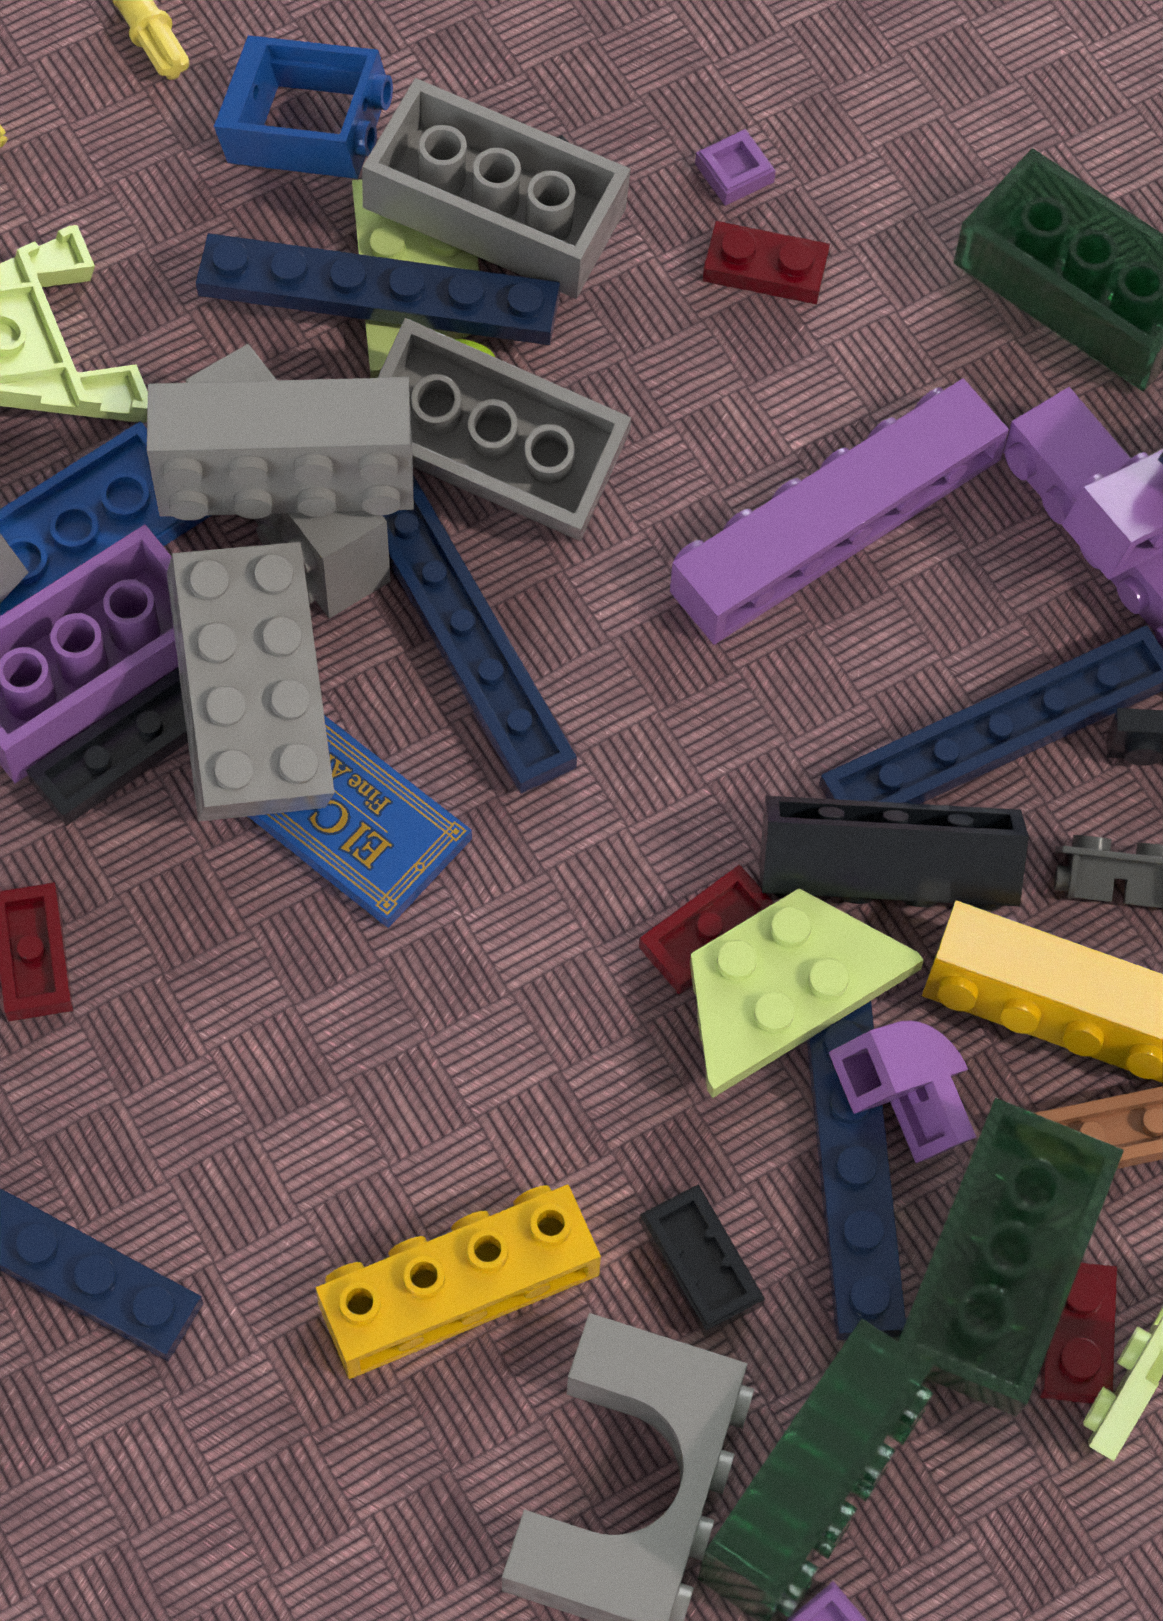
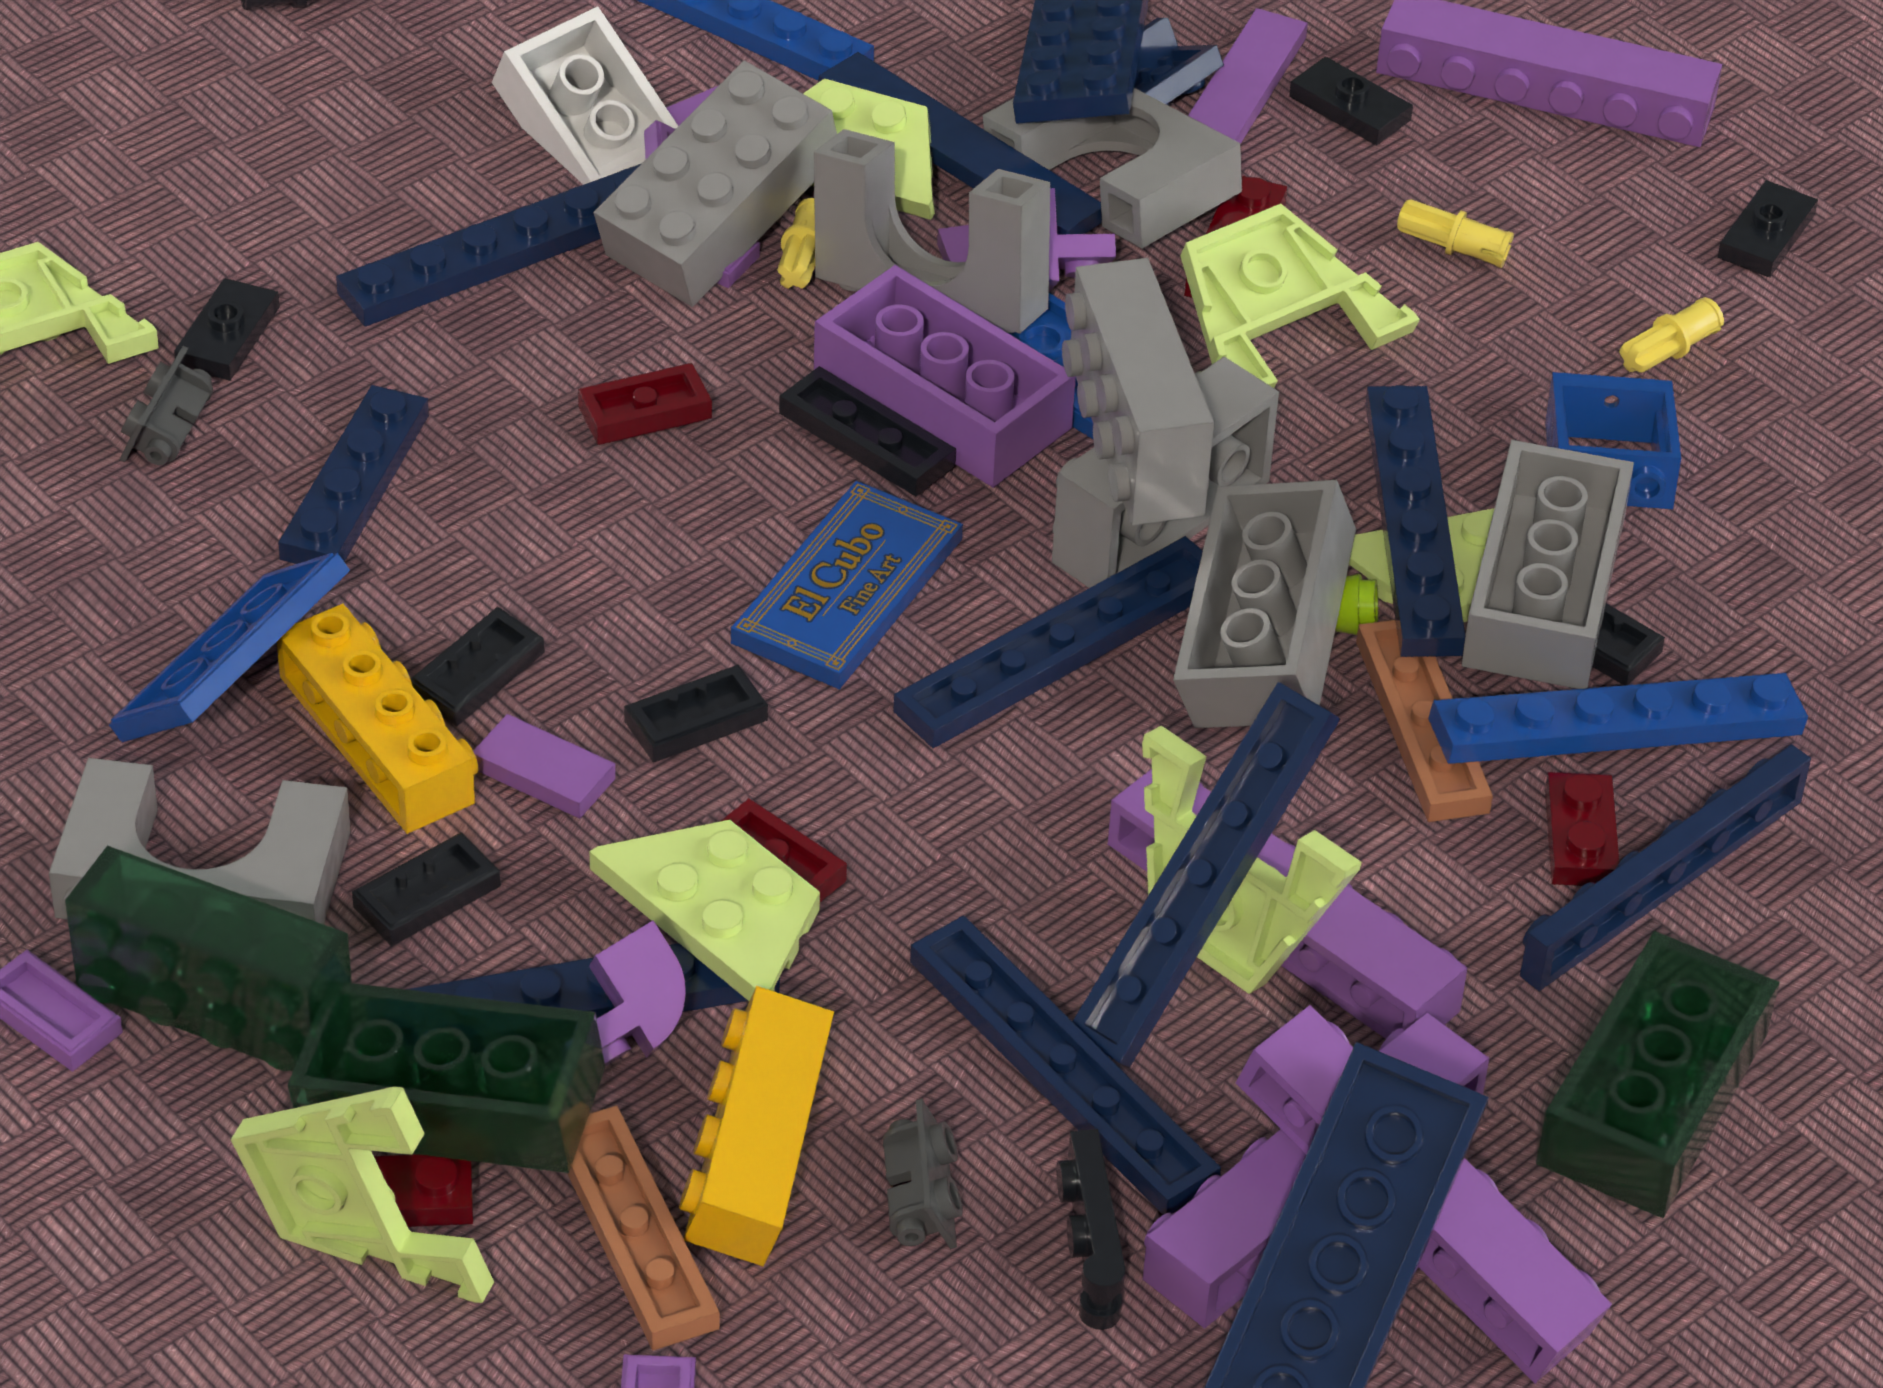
camera: 80 degrees right, 20 degrees down
(249, 681) = (923, 455): light grey brick -> none
(347, 1415) = (228, 647): none -> blue tile
(395, 1171) = (478, 665): none -> black plate
(500, 971) = (695, 713): none -> black plate
(539, 1128) = (544, 766): none -> medium lavender tile
(632, 349) = (1406, 696): none -> nougat plate
(654, 200) = (1617, 718): none -> blue plate
(735, 167) = (1687, 786): medium lavender tile -> none
(844, 216) = (1663, 868): none -> dark blue plate
(870, 543) = (1268, 909): none -> yellowish green wing
(886, 539) = (1204, 873): none -> dark blue plate
(893, 852) = (885, 971): black brick -> none

